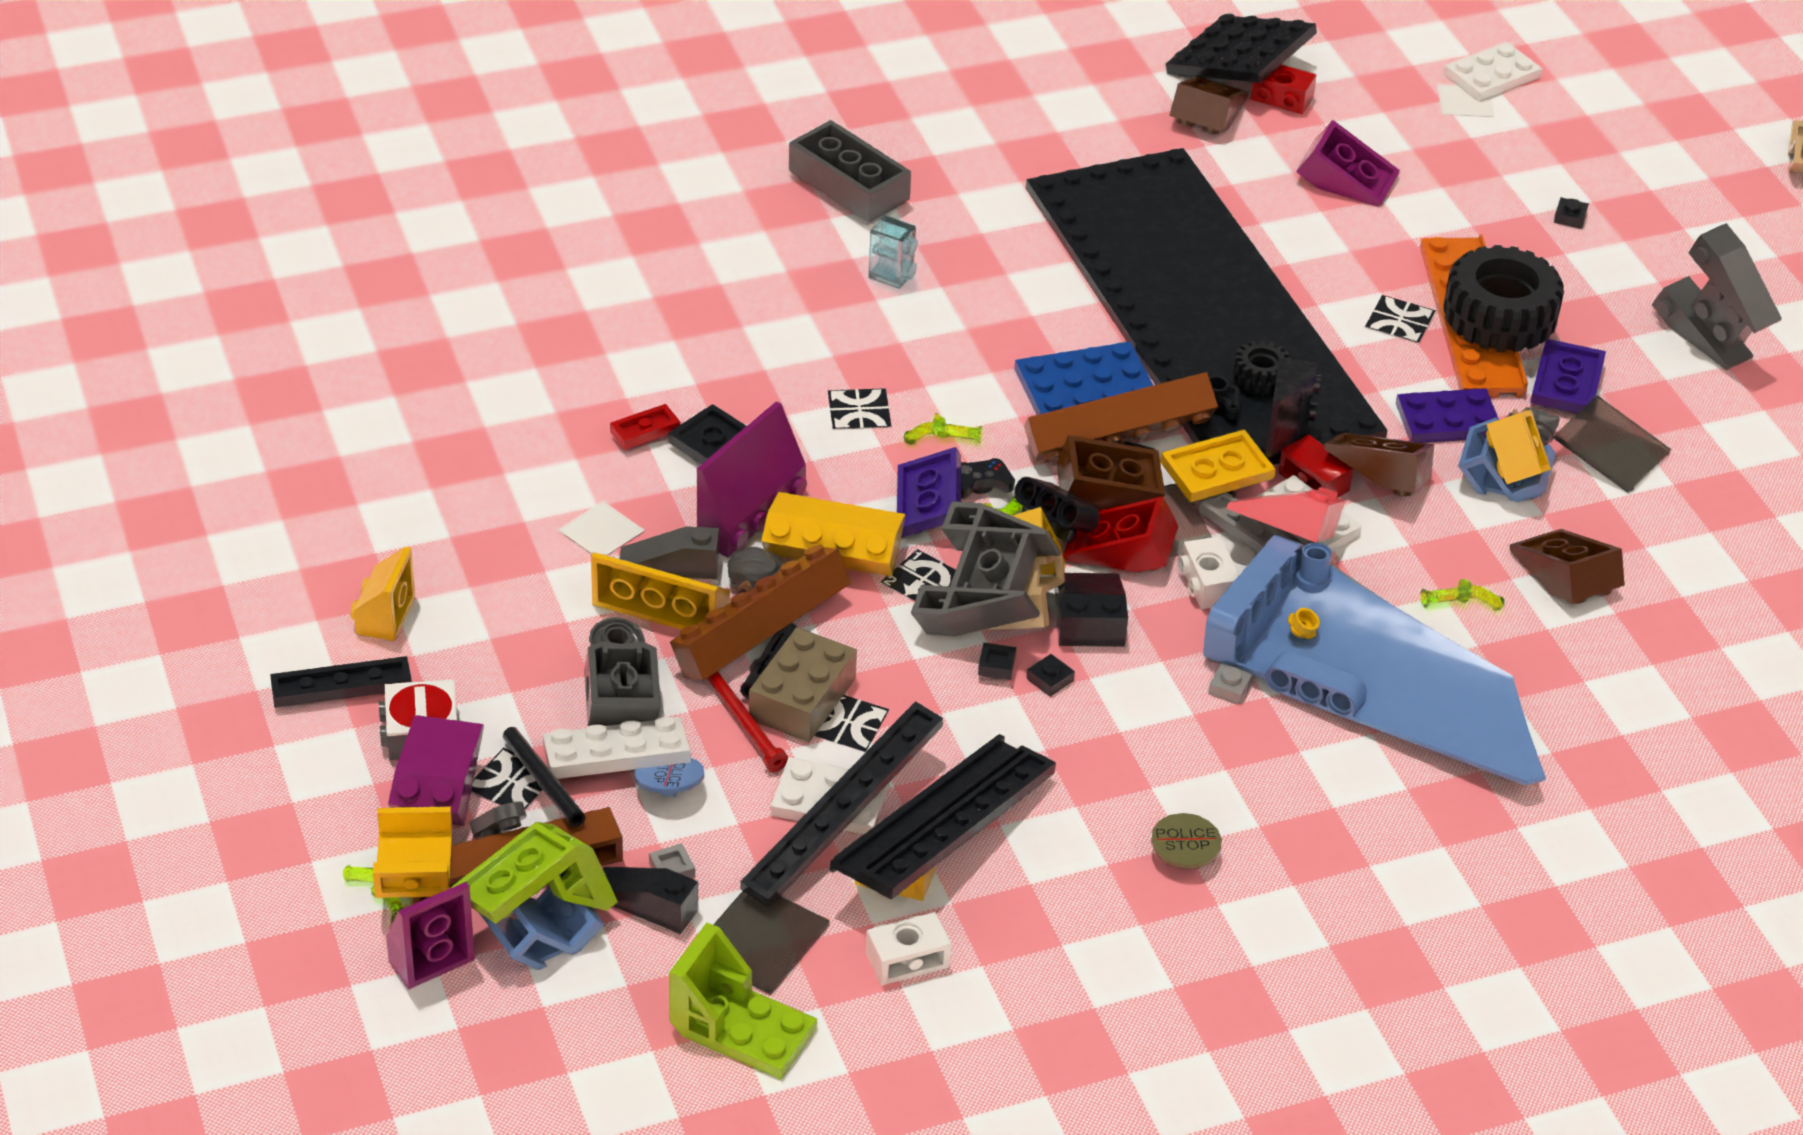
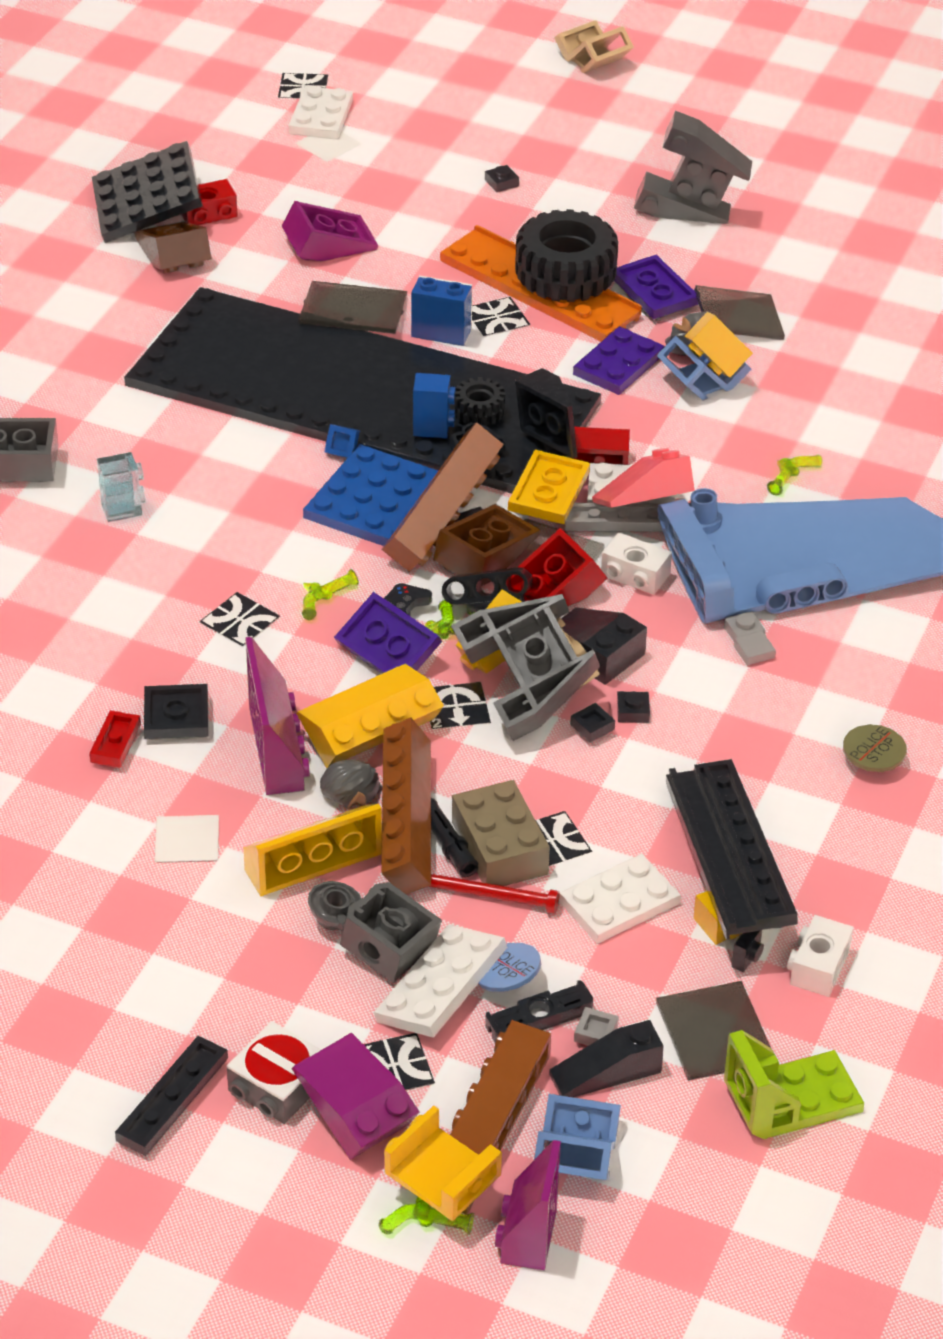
camera: 45 degrees left, 0 degrees up
(385, 597) = (119, 1002): yellow slope -> none
(498, 819) = (458, 1085): dark grey plate -> none
(531, 863) = (554, 1103): lime bracket -> none
(544, 777) = (433, 1038): black piece -> none
(674, 831) = (561, 1005): none -> black piece
(683, 552) = (277, 810): dark grey slope -> none
(841, 804) = (655, 894): black plate -> none
(860, 900) = (747, 950): none -> black plate
(1117, 328) = (341, 440): none -> blue plate
(1204, 340) = (432, 405): none -> blue brick
(1215, 703) = (754, 648): none -> light grey tile
(1284, 237) = (353, 307): none -> clear smoke piece
(1304, 623) = (742, 553): yellow plate -> none
(1338, 279) = (441, 310): none -> blue piece
(1386, 461) = (647, 408): reddish brown slope -> none
(1516, 36) = (293, 83): none -> sticker
(1571, 564) = (826, 404): reddish brown slope -> none

